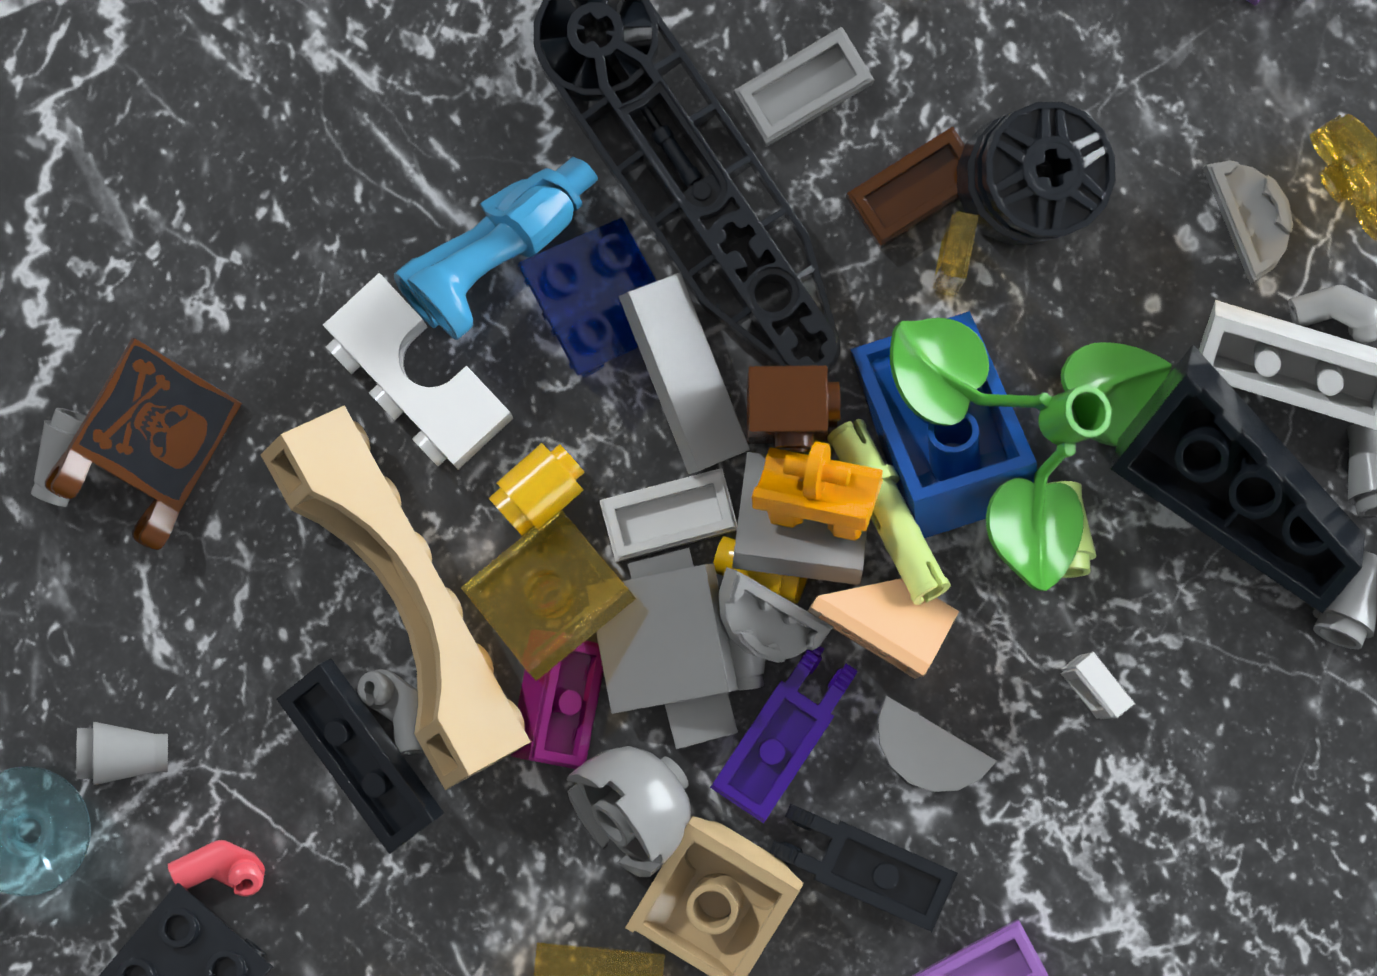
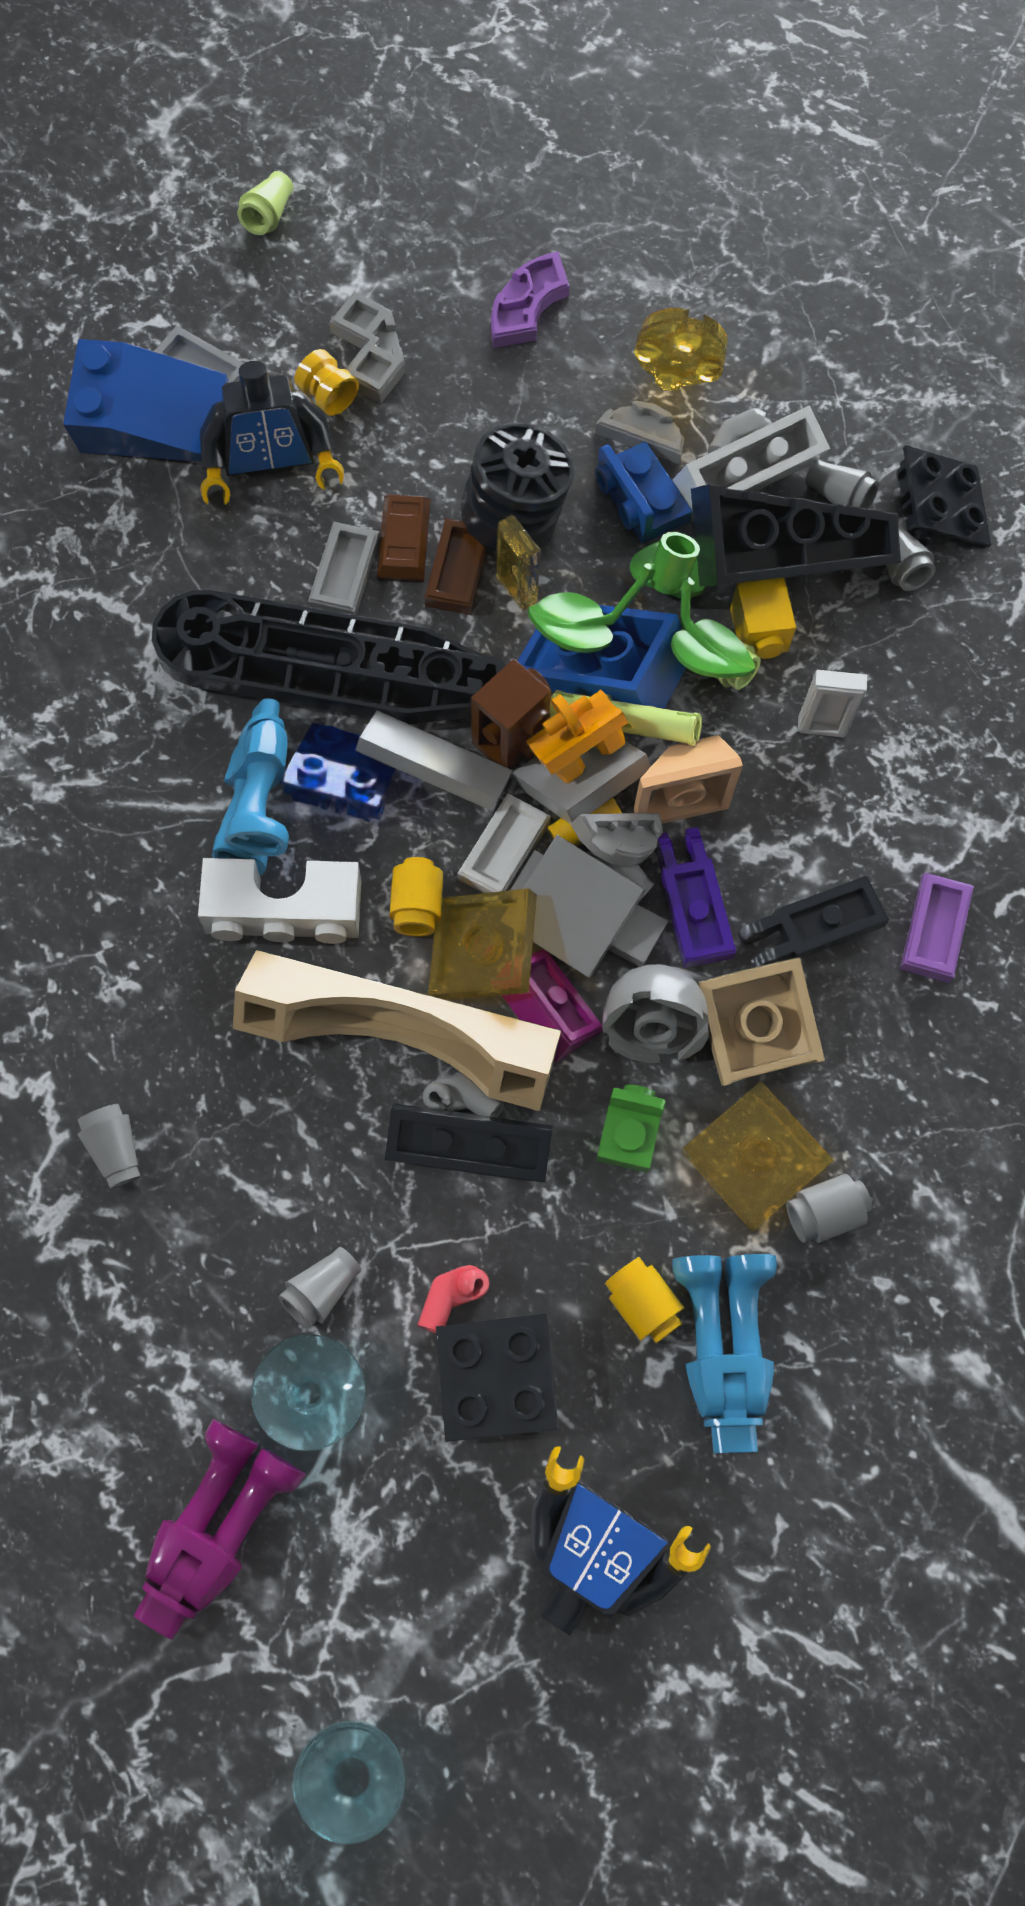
camera: 50 degrees left, 15 degrees down
(152, 431) = (152, 1077): flag -> none
(510, 881) = (631, 1128): none -> bright green bracket
(896, 105) = (404, 538): none -> reddish brown tile
(927, 753) = (777, 836): light grey tile -> none
(1137, 537) = (763, 616): none -> yellow brick
(1175, 280) = (641, 491): none -> blue bracket

